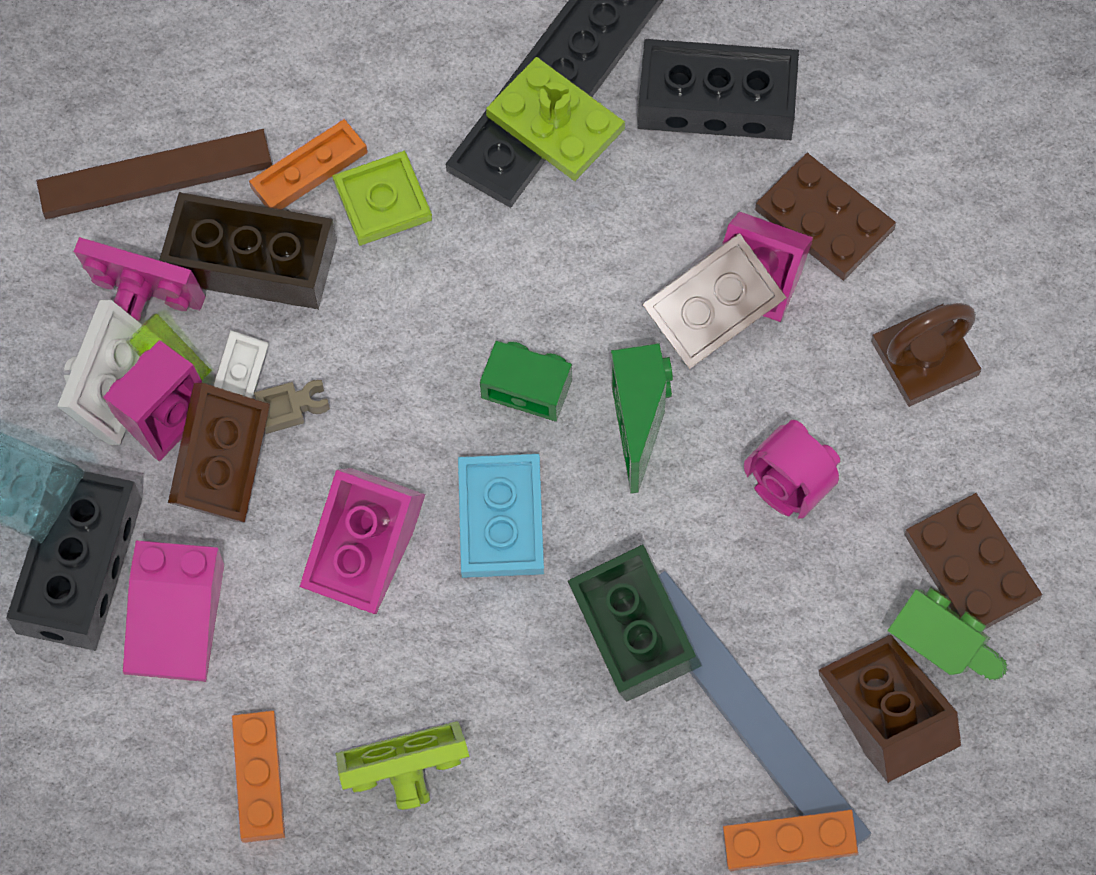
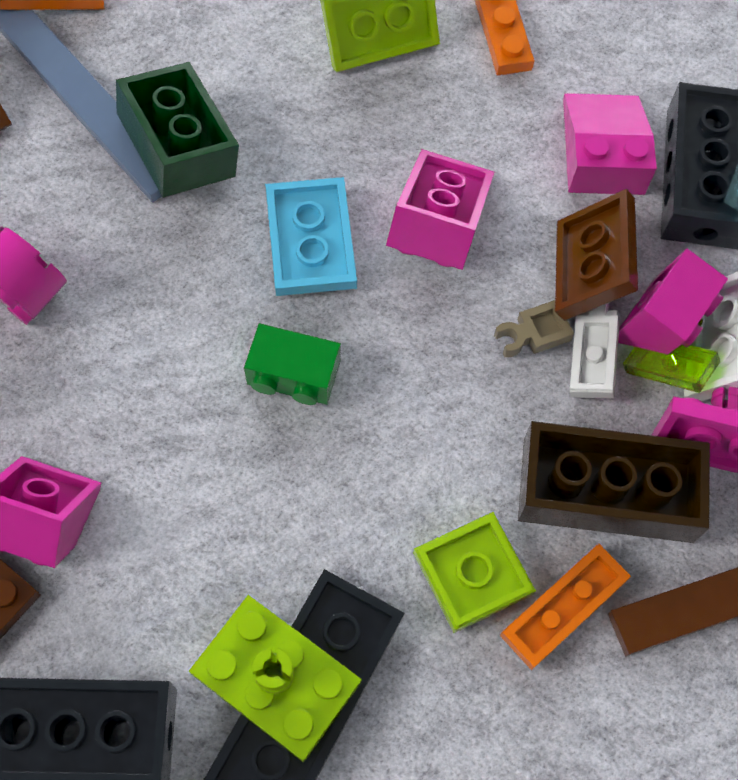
camera: 170 degrees right, 0 degrees up
(639, 393) = (167, 328): green slope -> none
(714, 300) = (87, 450): plate -> none

